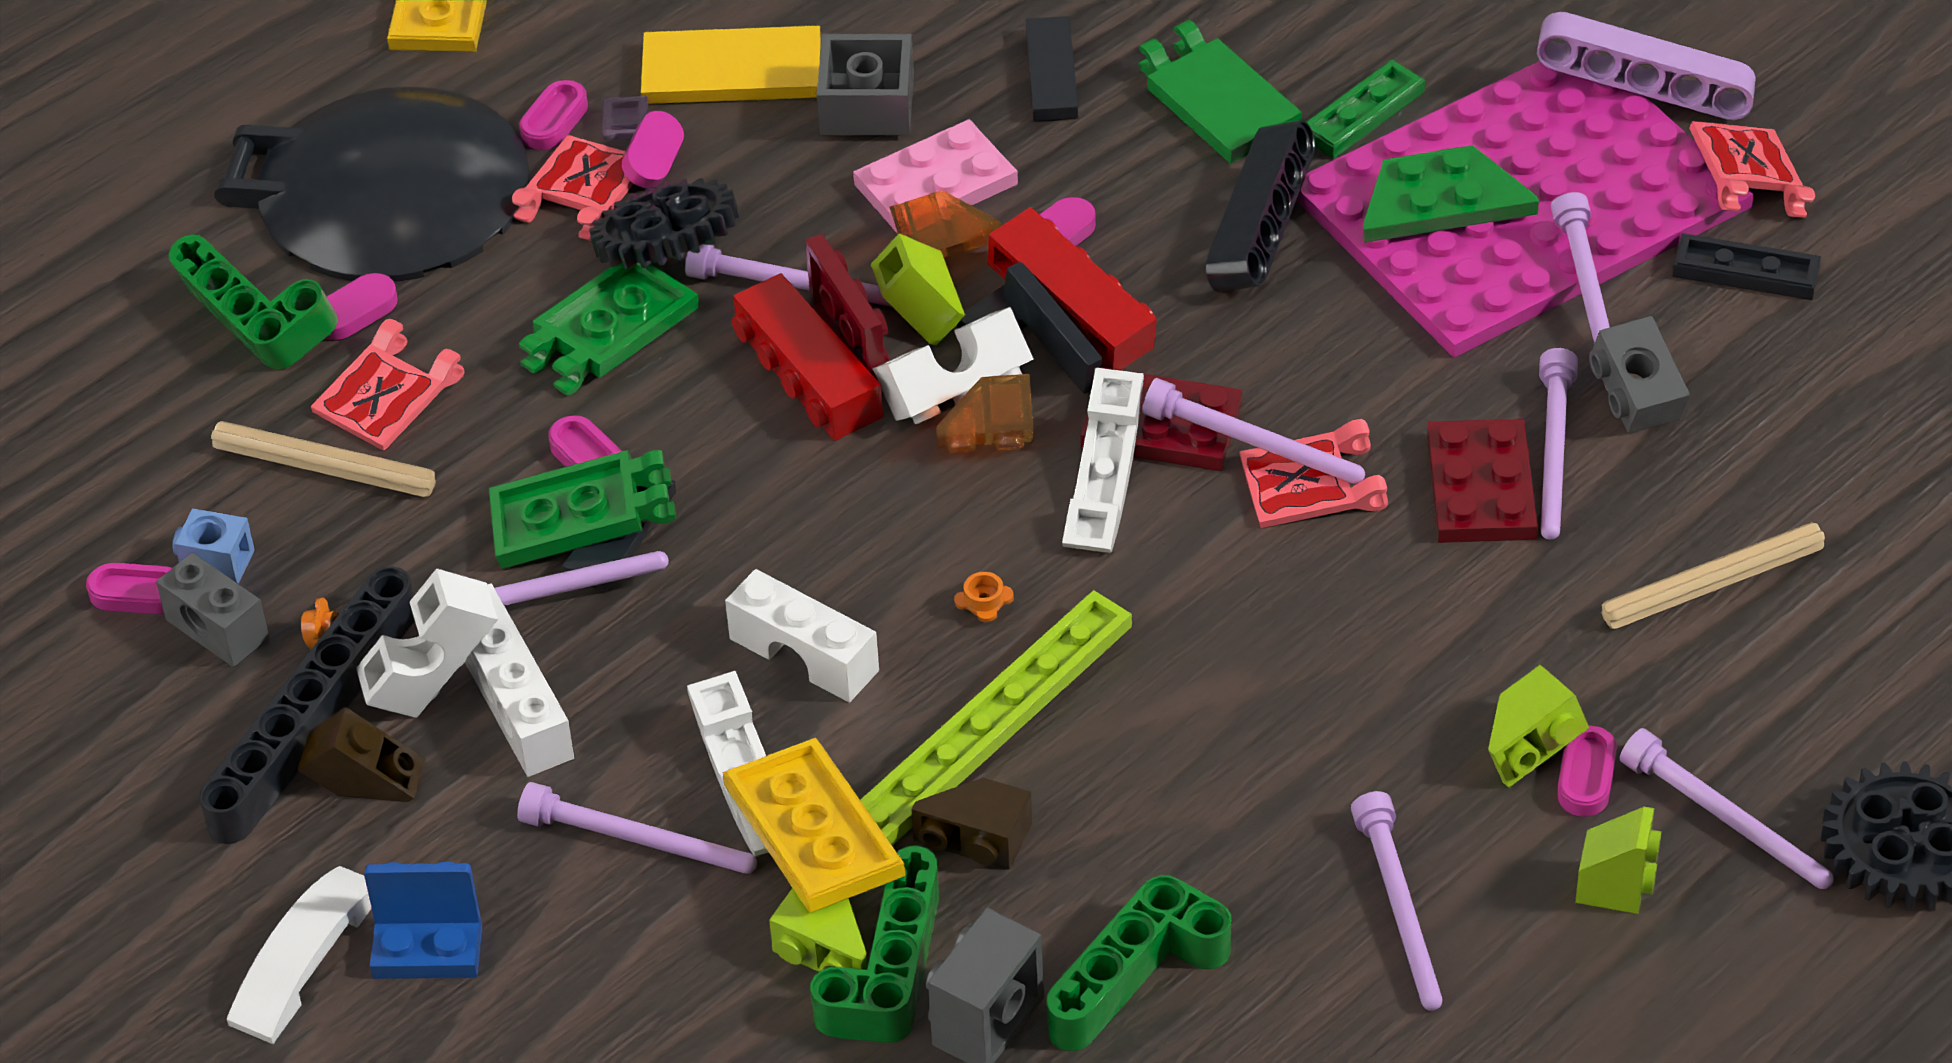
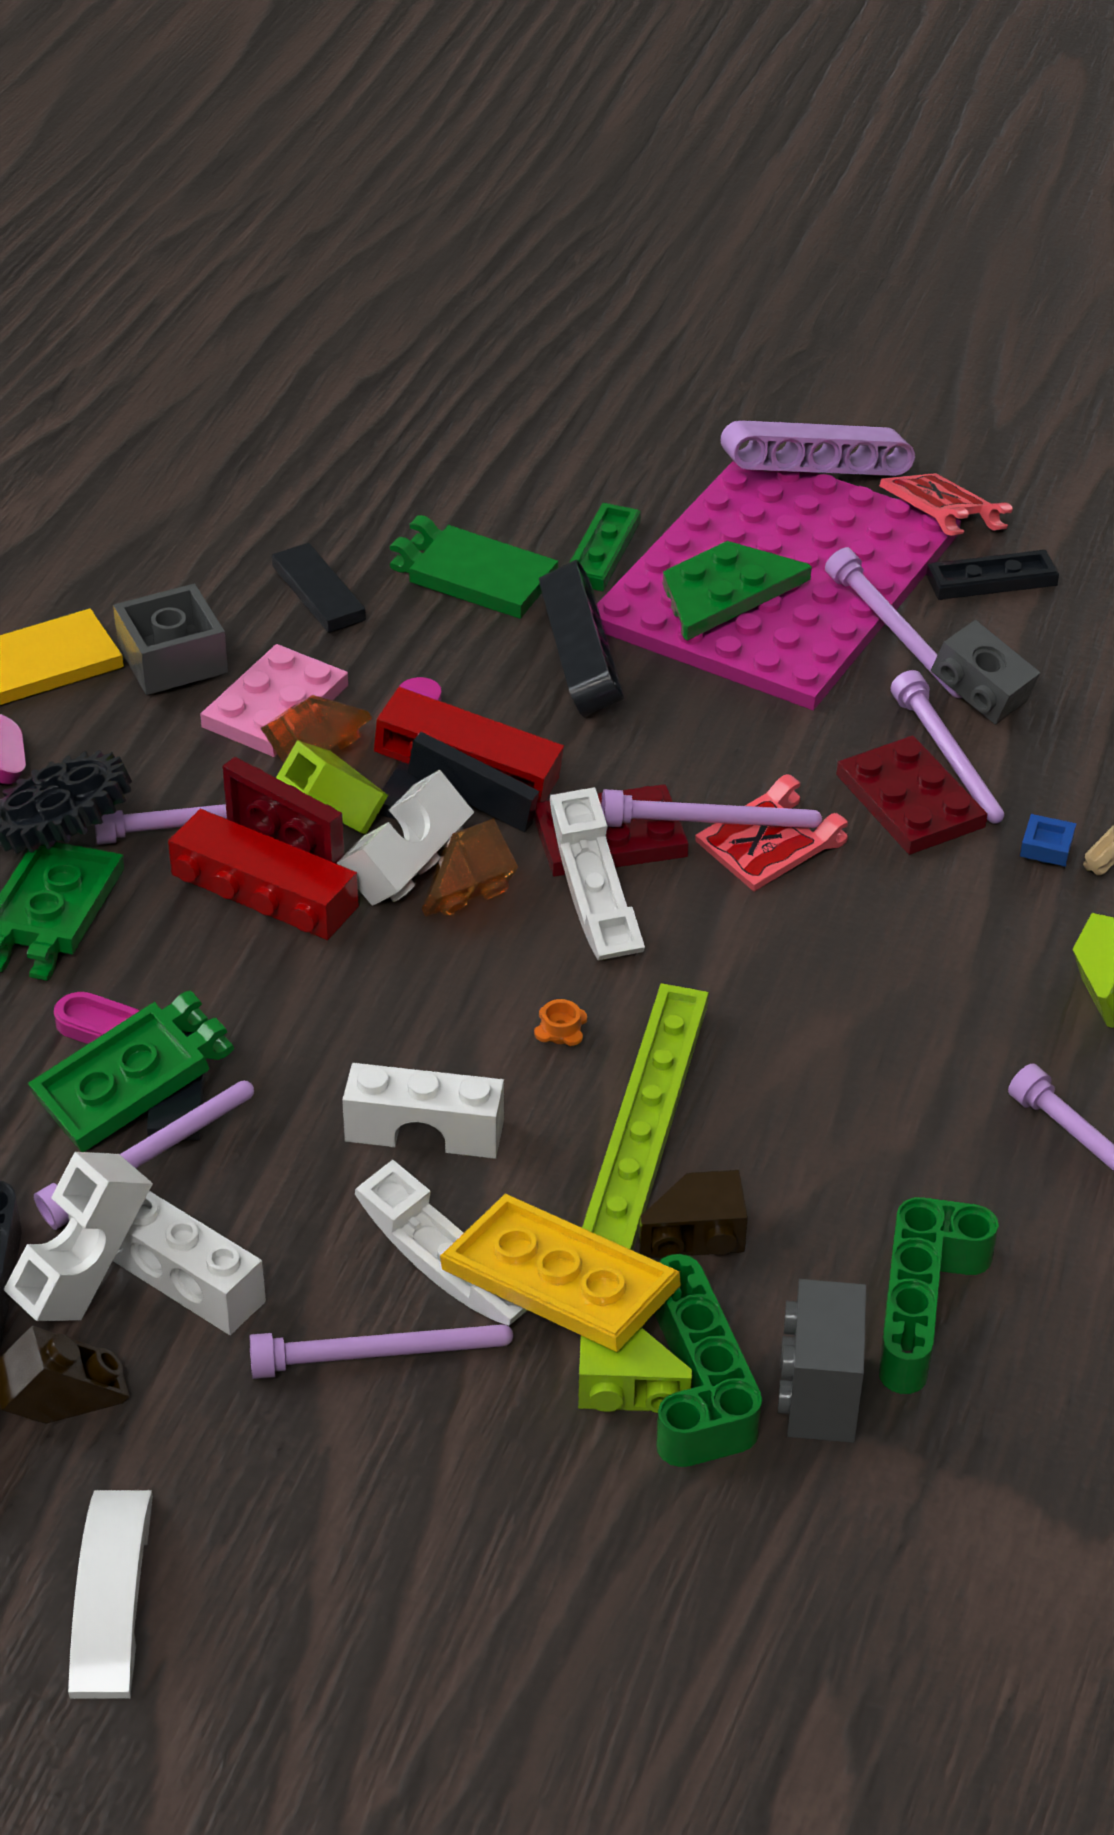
camera: 30 degrees left, 5 degrees down
(424, 920) = (228, 1508): blue bracket -> none
(1577, 574) = (1048, 840): none -> blue plate

